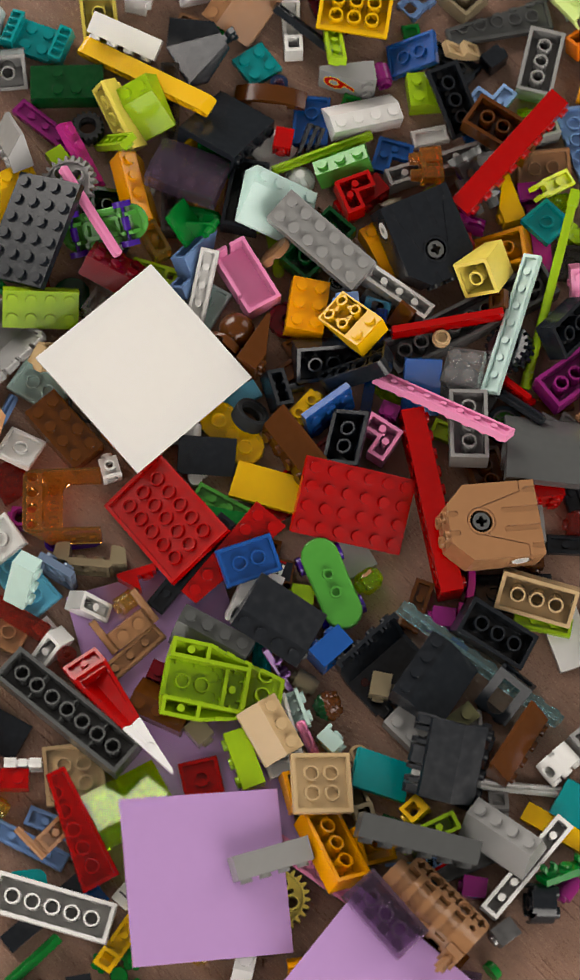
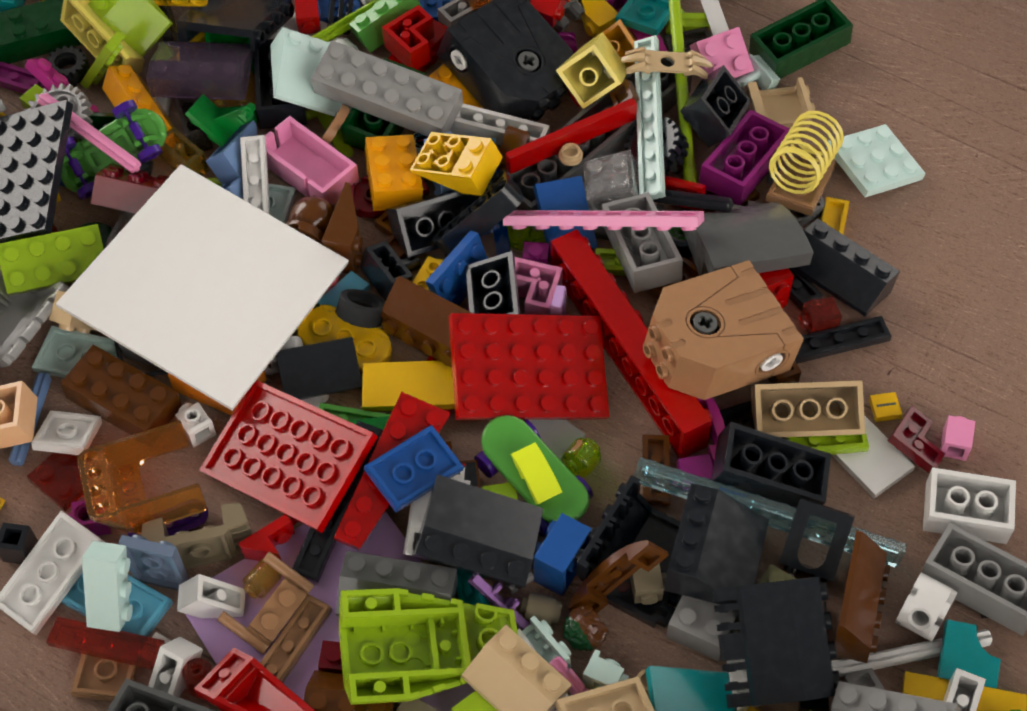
camera: 10 degrees left, 15 degrees down
(330, 588) = (536, 473): none -> neon yellow slope
(357, 675) = (615, 571): none -> reddish brown slope
(390, 461) = (558, 304): none -> lavender tile
(529, 281) = (650, 61): none -> tan piece

